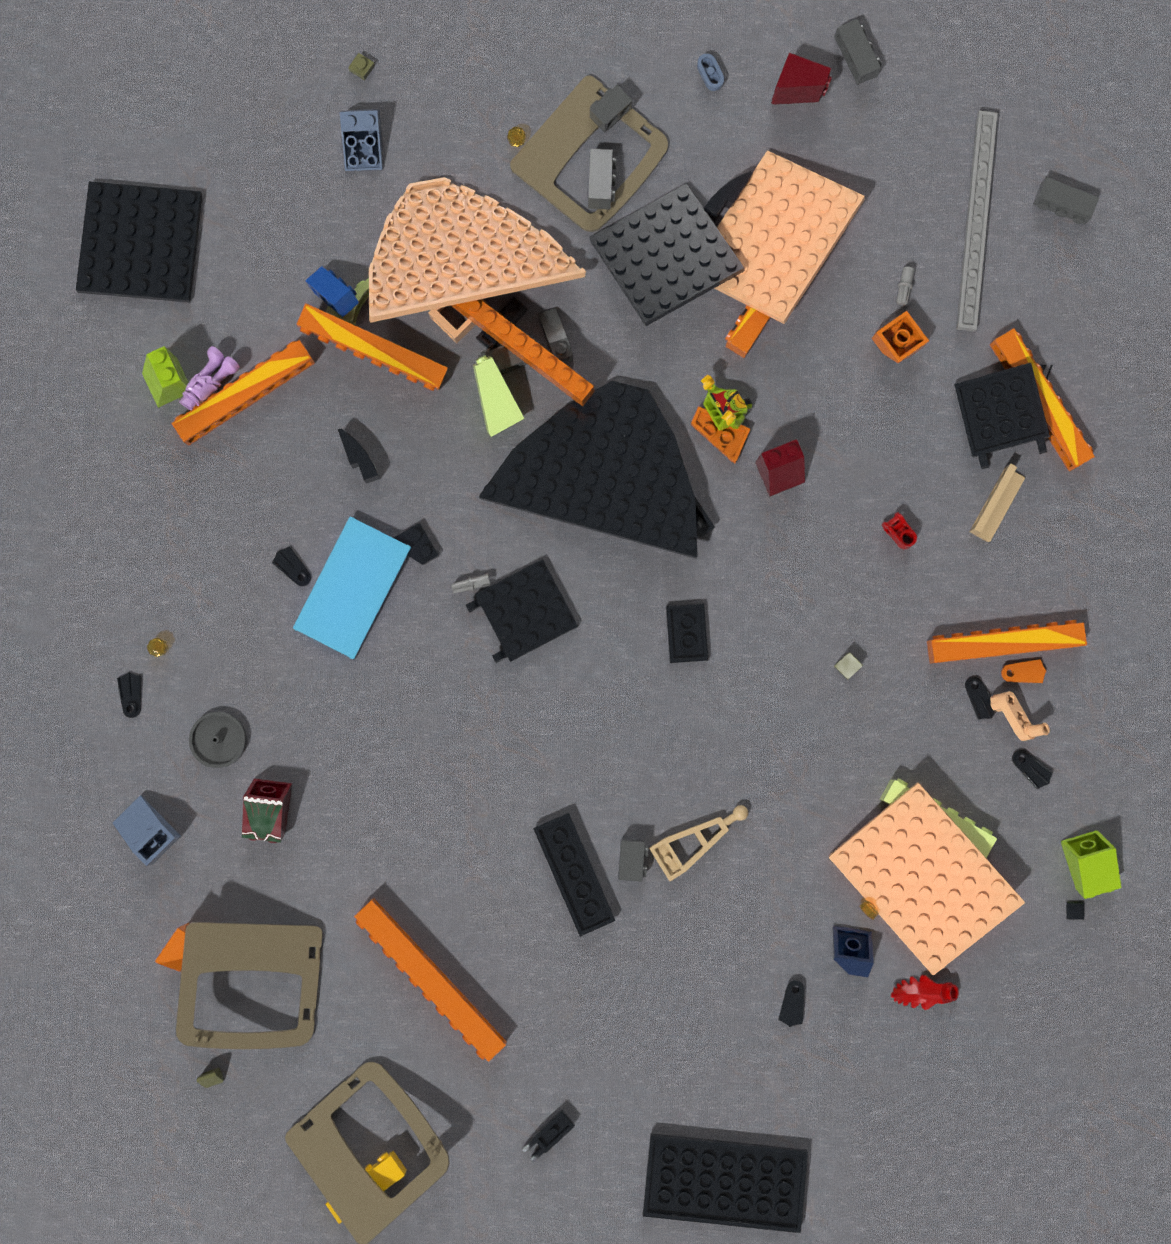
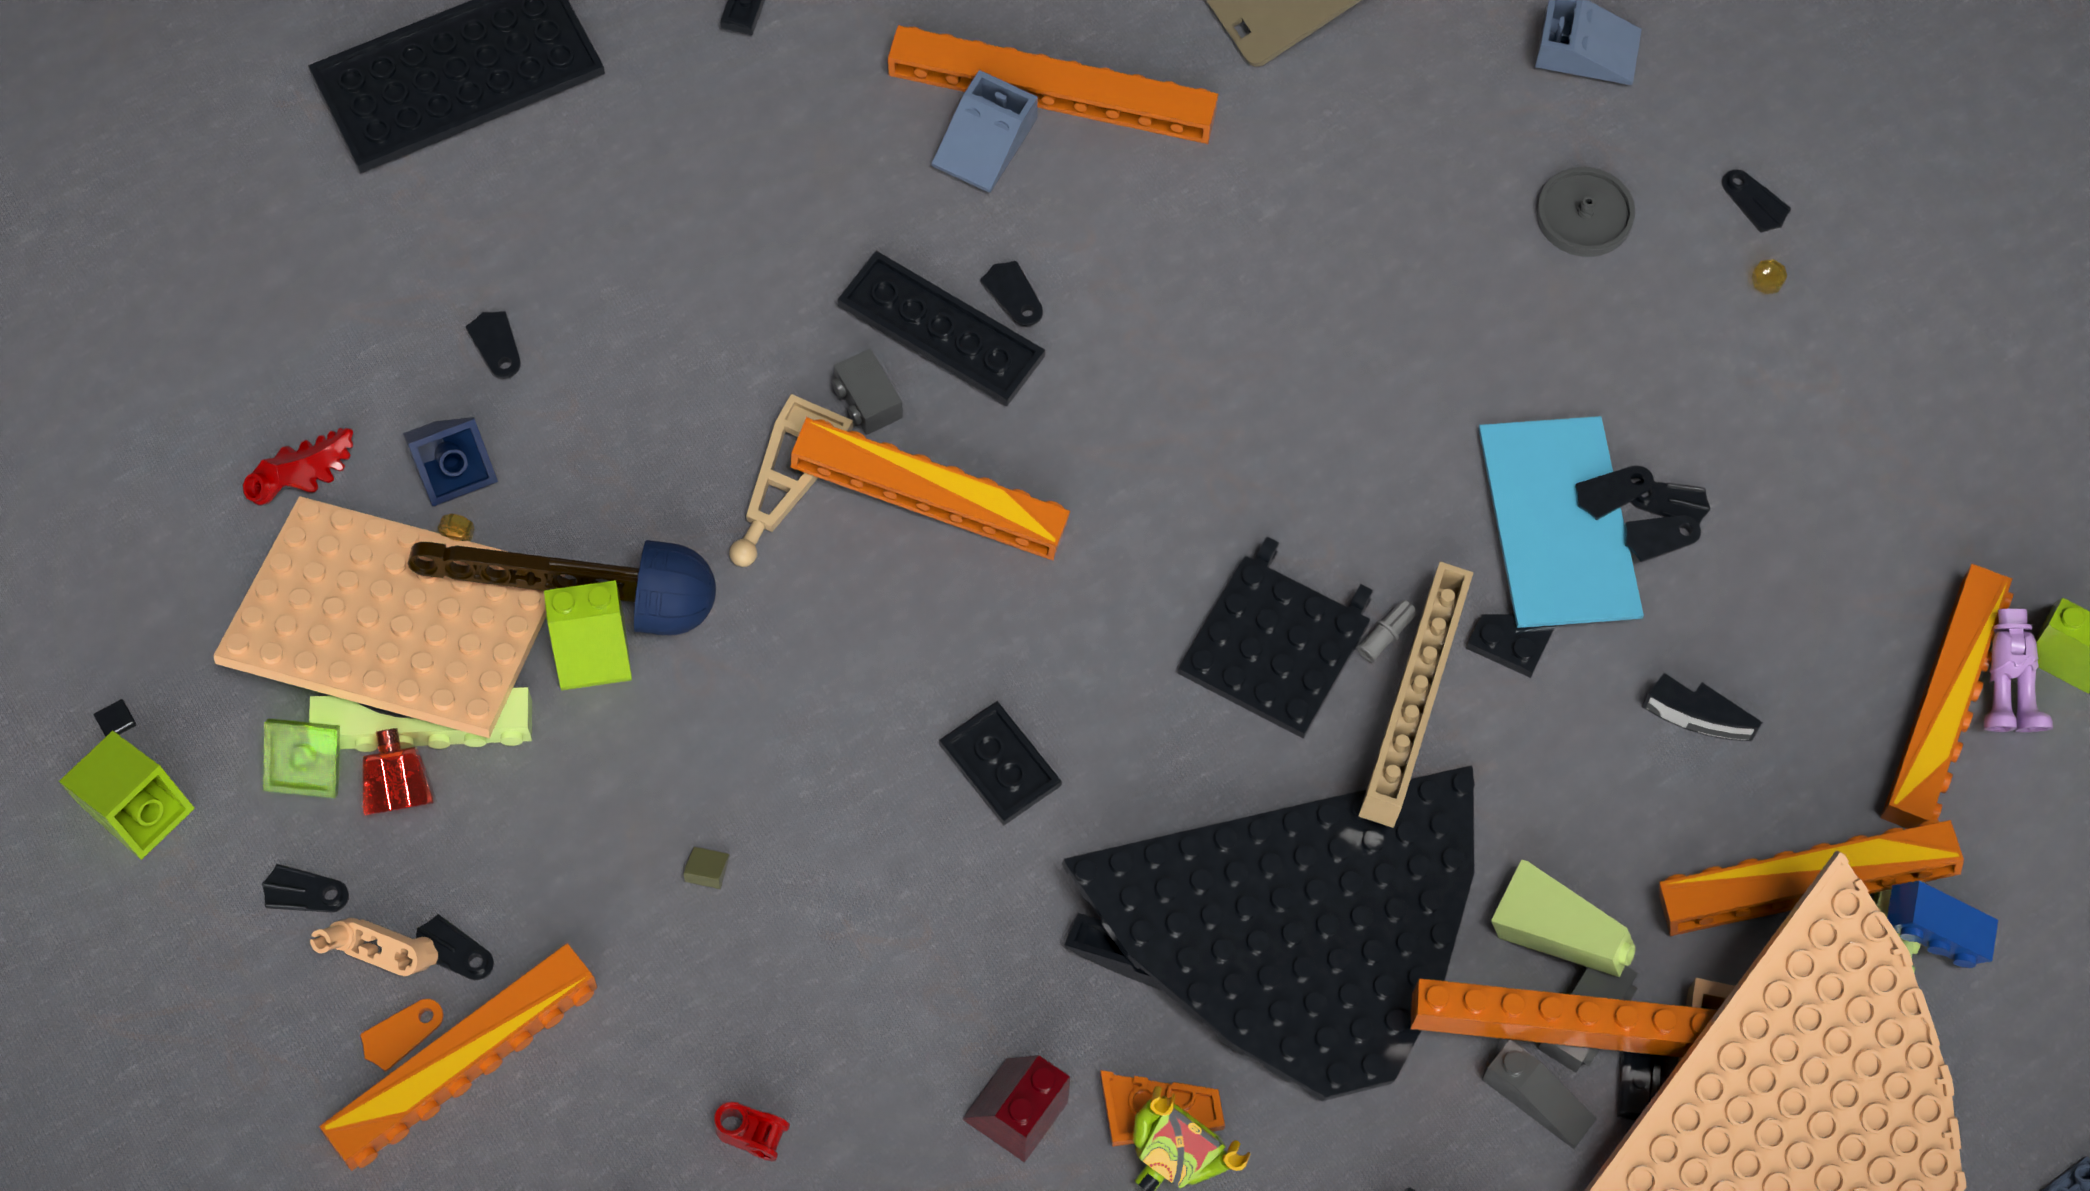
camera: 150 degrees right, 20 degrees down
(266, 810) = (1446, 158): slope -> none
(311, 550) = (1660, 535): none -> black piece
(317, 585) = (1613, 490): none -> black piece
(483, 538) = (1416, 695): none -> tan brick
(483, 970) = (986, 131): none -> sand blue slope
(525, 873) = (1013, 292): none -> black piece
(636, 786) = (929, 488): none -> orange brick
(791, 807) = (669, 589): none -> piece
(841, 808) = (588, 635): none -> lime slope
(967, 793) = (394, 776): none -> clear red torso
(1004, 830) = (301, 758): none -> clear neon green plate

